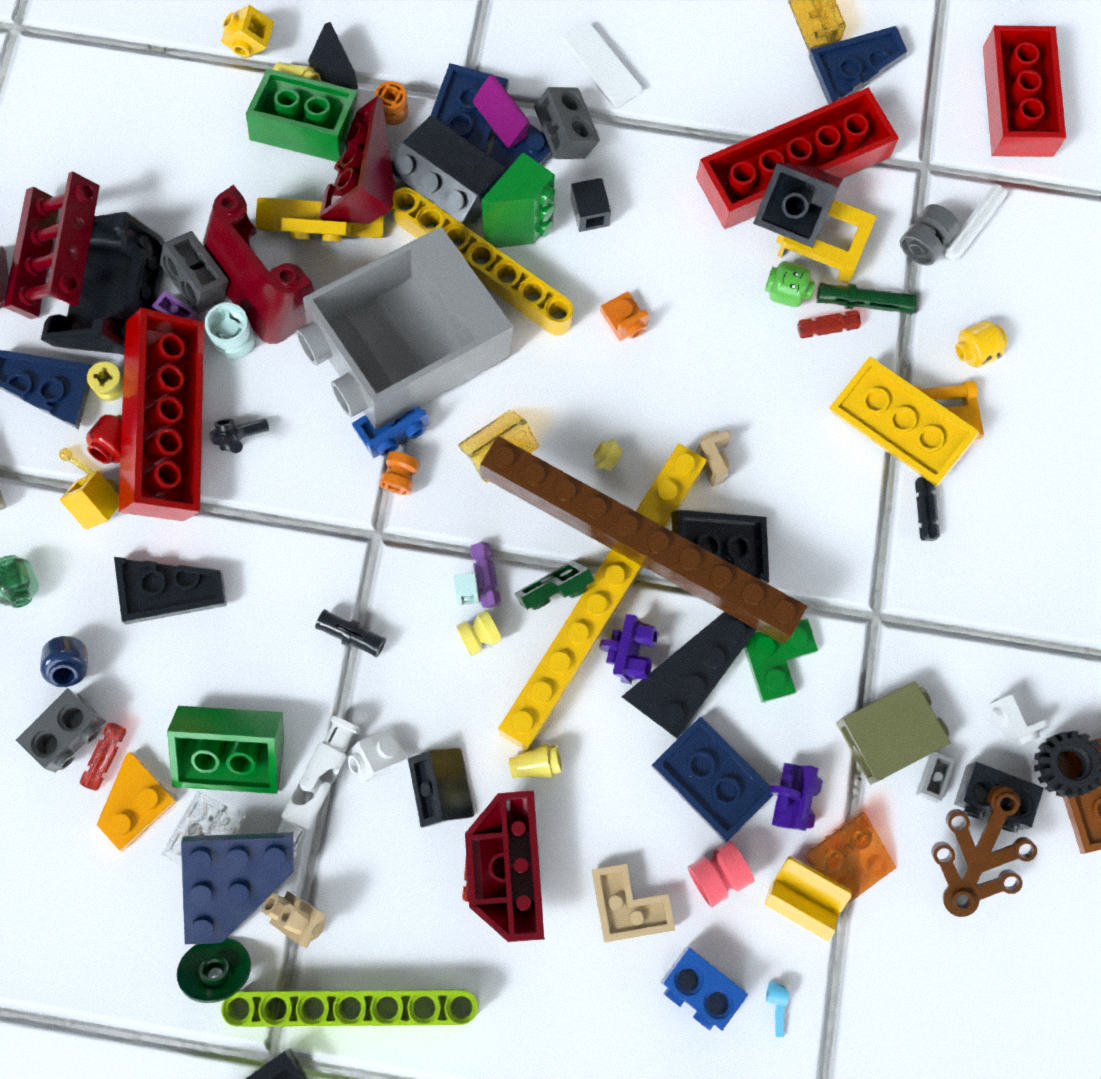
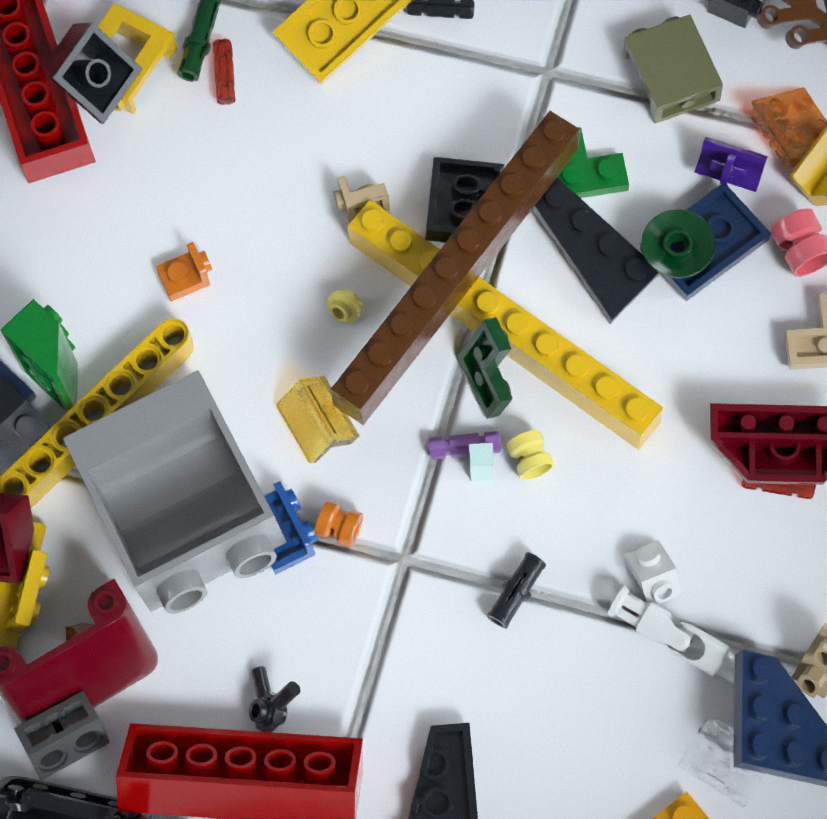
camera: 75 degrees left, 5 degrees down
(169, 304) = (102, 766): medium lavender piece -> none
(226, 749) = (635, 728): green slope -> none
(230, 331) = (142, 696): light aqua wheel -> none
(440, 786) = (693, 511): black panel -> none
(537, 763) = (677, 409): light yellow cone -> none
(590, 204) = (47, 287): black panel -> none
(625, 646) = (548, 296): dark purple hips -> none
(711, 736) = (680, 229): none -> dark green dish
(789, 284) = (175, 101): bright green head -> none
(935, 777) = (720, 37): light grey piece -> none

